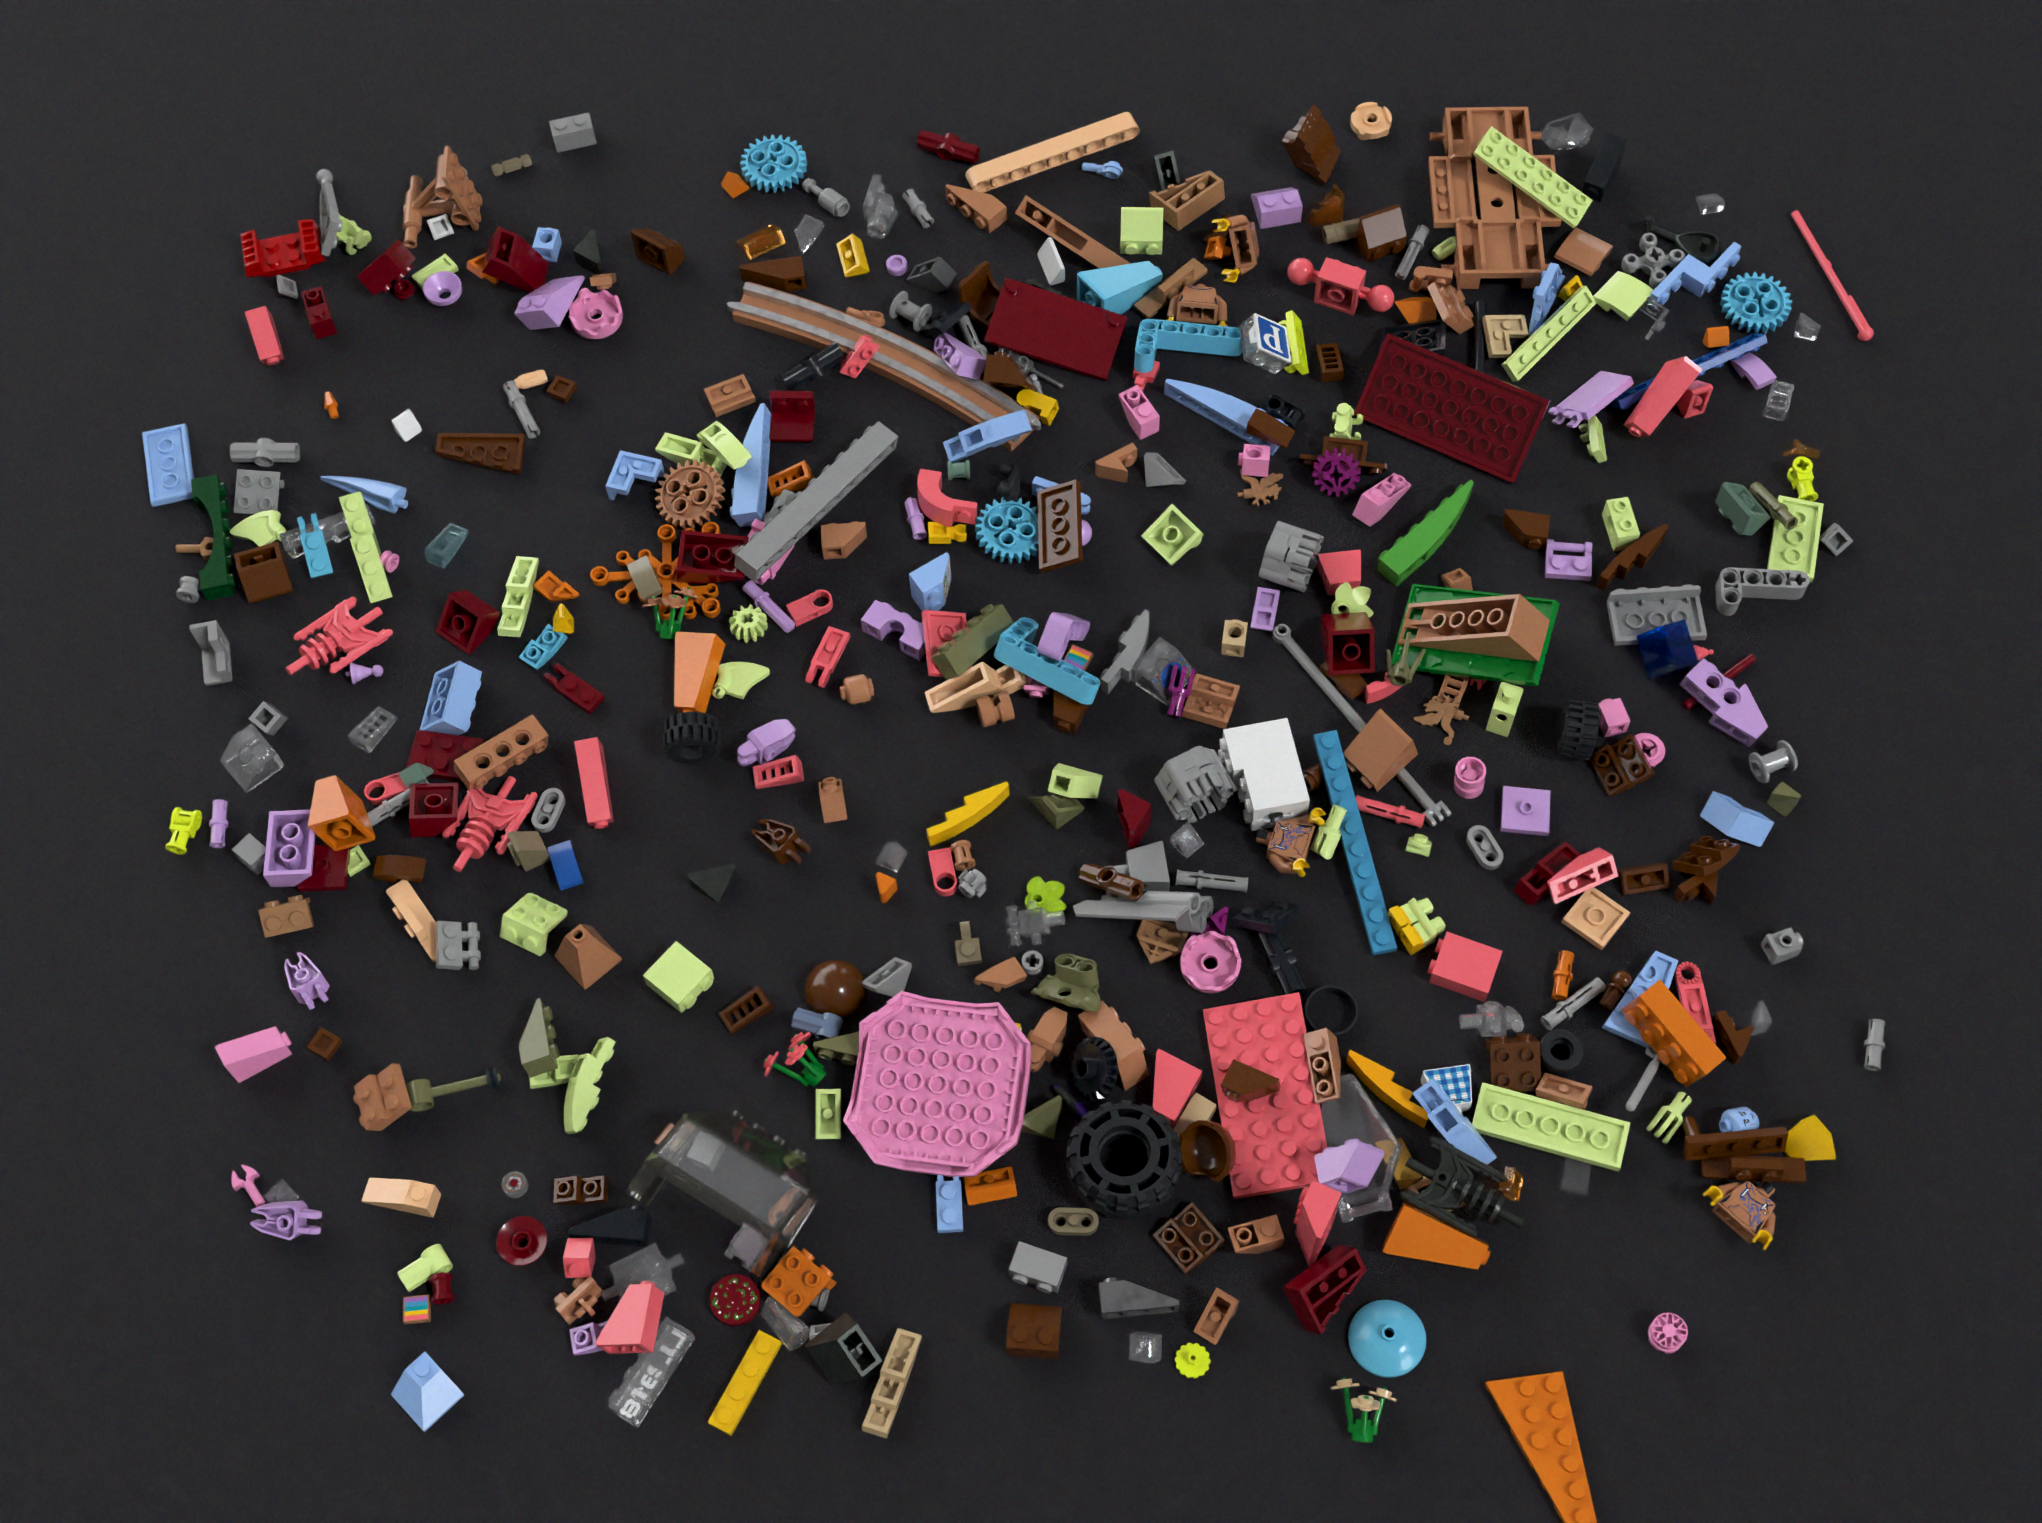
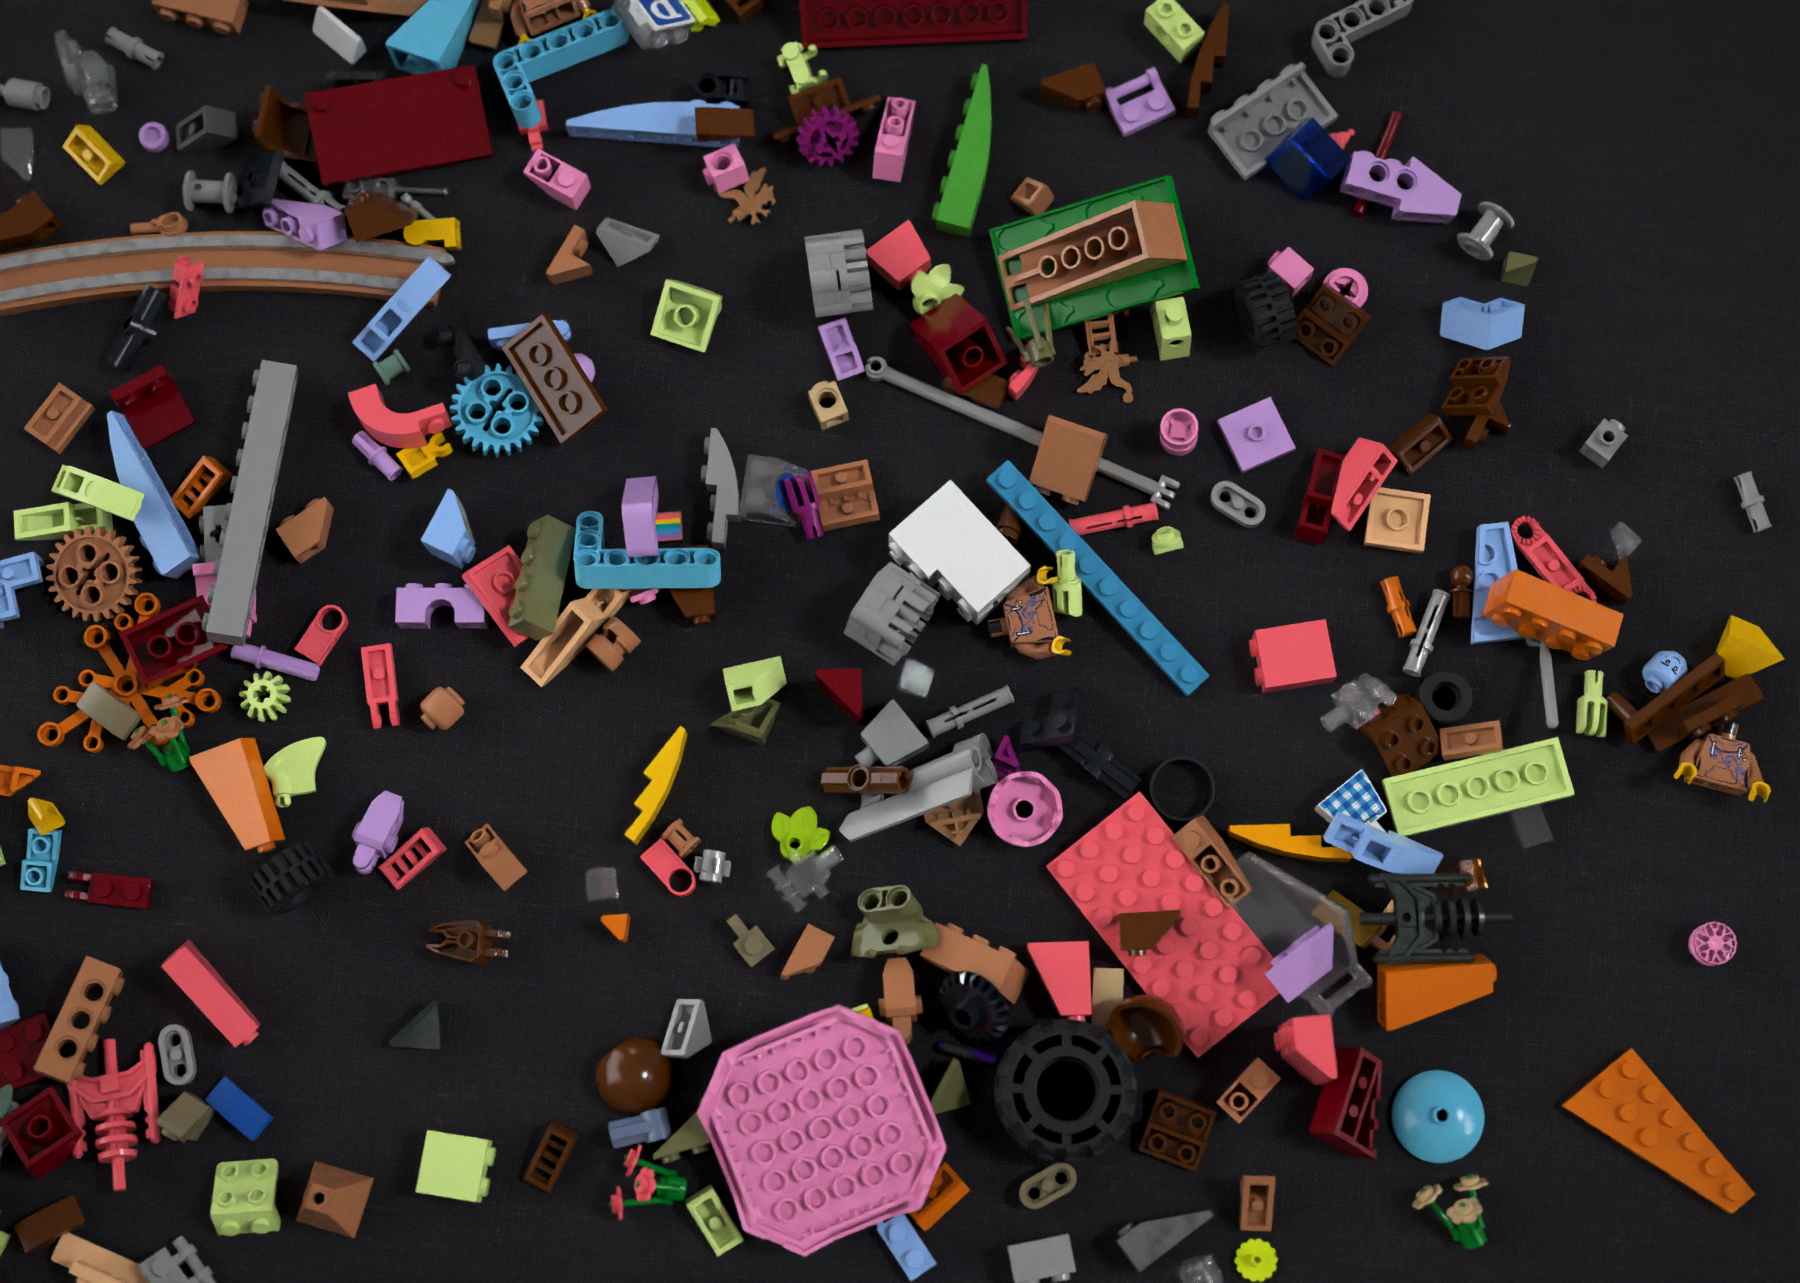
camera: 30 degrees left, 15 degrees up
(1038, 959) = (834, 909): light grey bush -> none
(1414, 926) = (1206, 627): hips -> none

